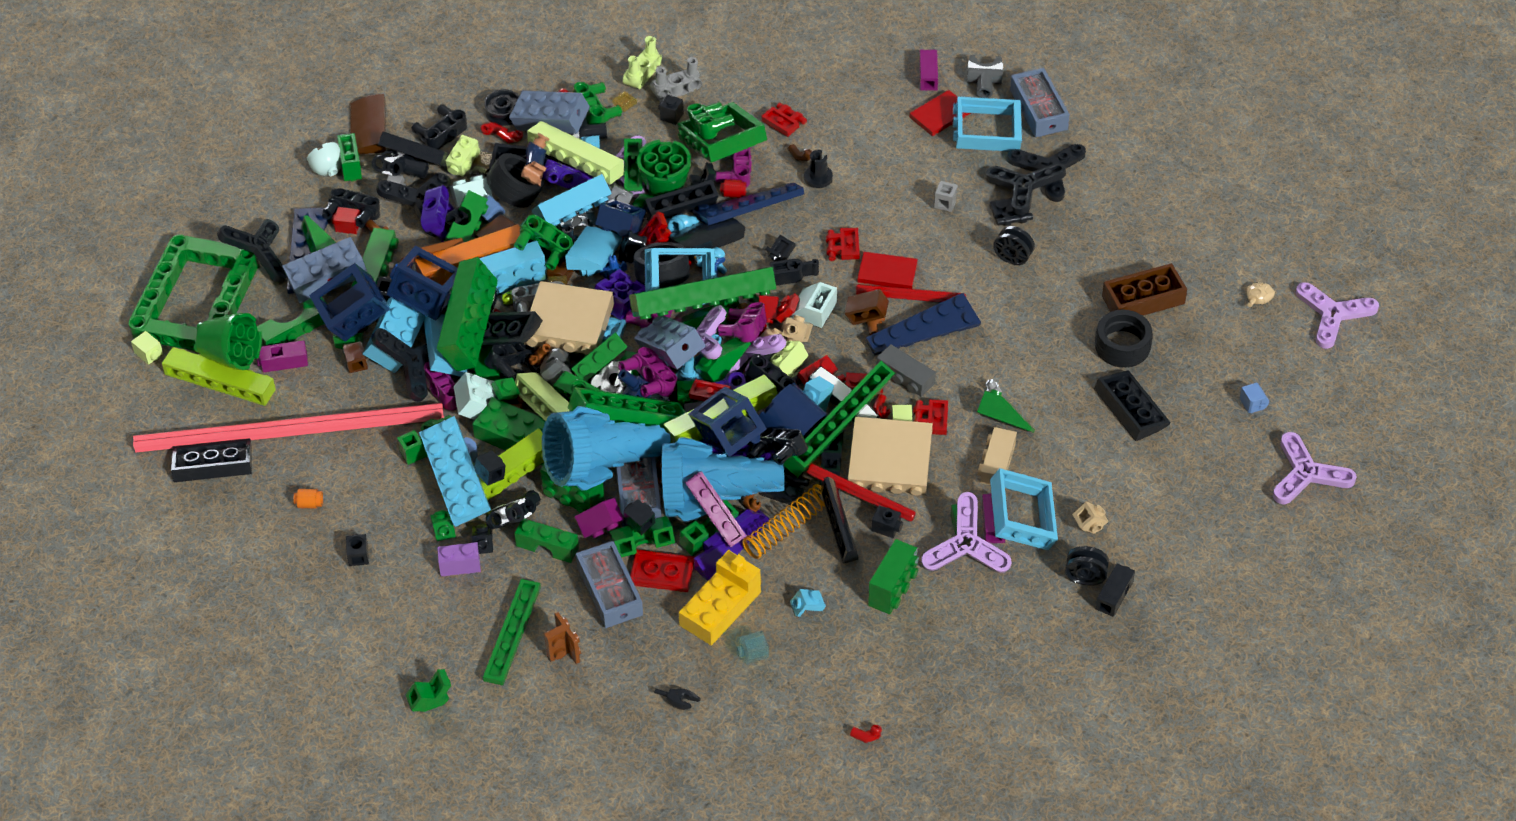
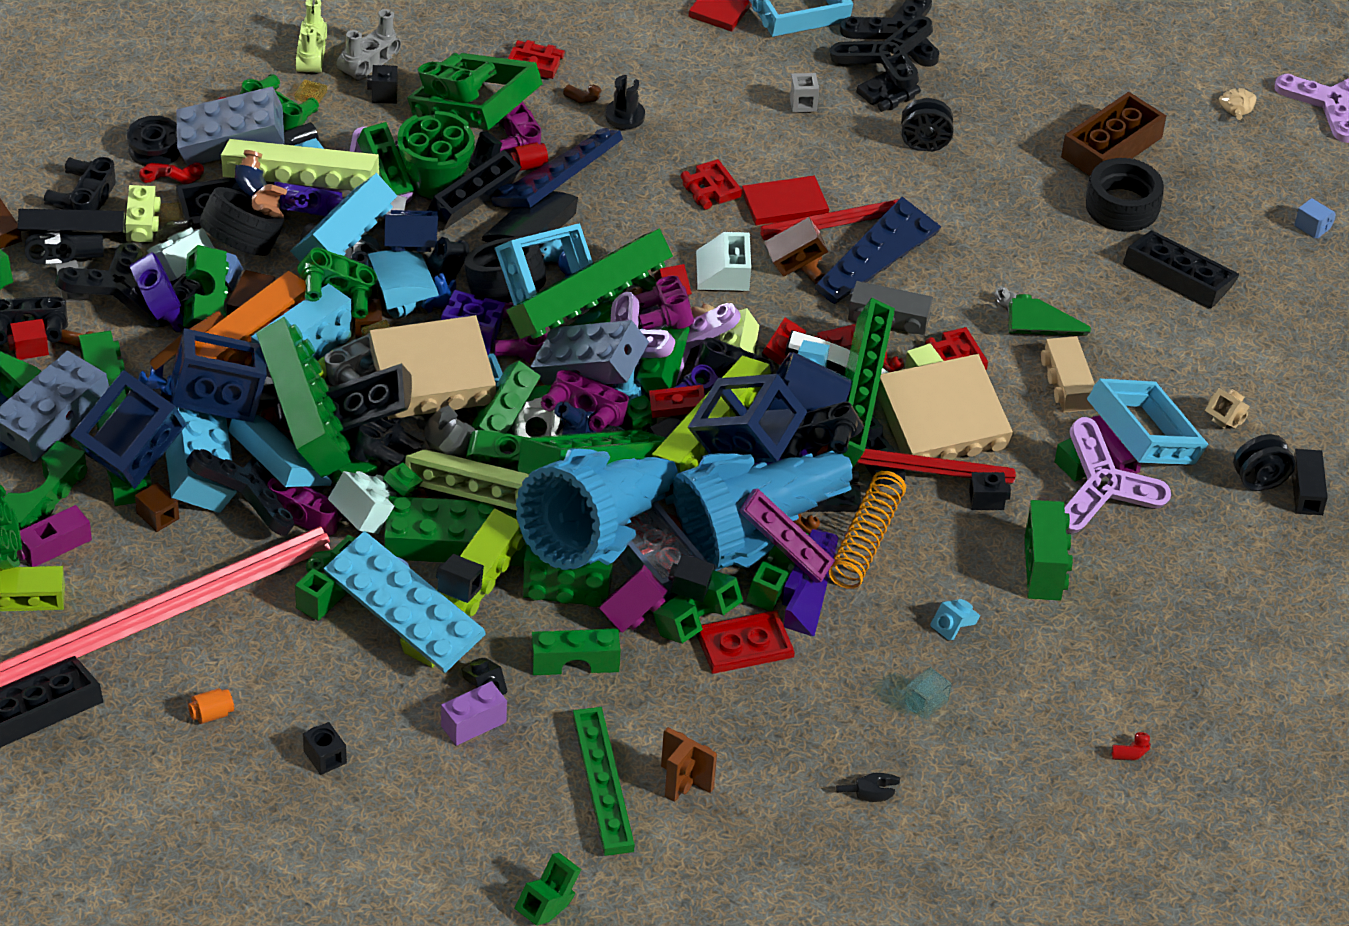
camera: 30 degrees left, 5 degrees down
(443, 525) = (421, 677): green bracket -> none
(513, 511) = (519, 621): black connector -> none
(539, 354) = (417, 424): dark orange arm -> none
(609, 584) = (696, 677): brick -> none
(639, 201) = (421, 200): green arm -> none
(656, 229) = (468, 226): red plate -> none
(681, 222) = (486, 216): medium azure animal -> none
(721, 598) = (851, 645): yellow hinge -> none
(781, 249) = (638, 211): black bracket -> none
(787, 307) = (699, 276): red plate -> none
(793, 270) = (676, 228): black piece -> none
(796, 329) = (725, 287): tan brick -> none
(838, 521) = (939, 505): black slope -> none

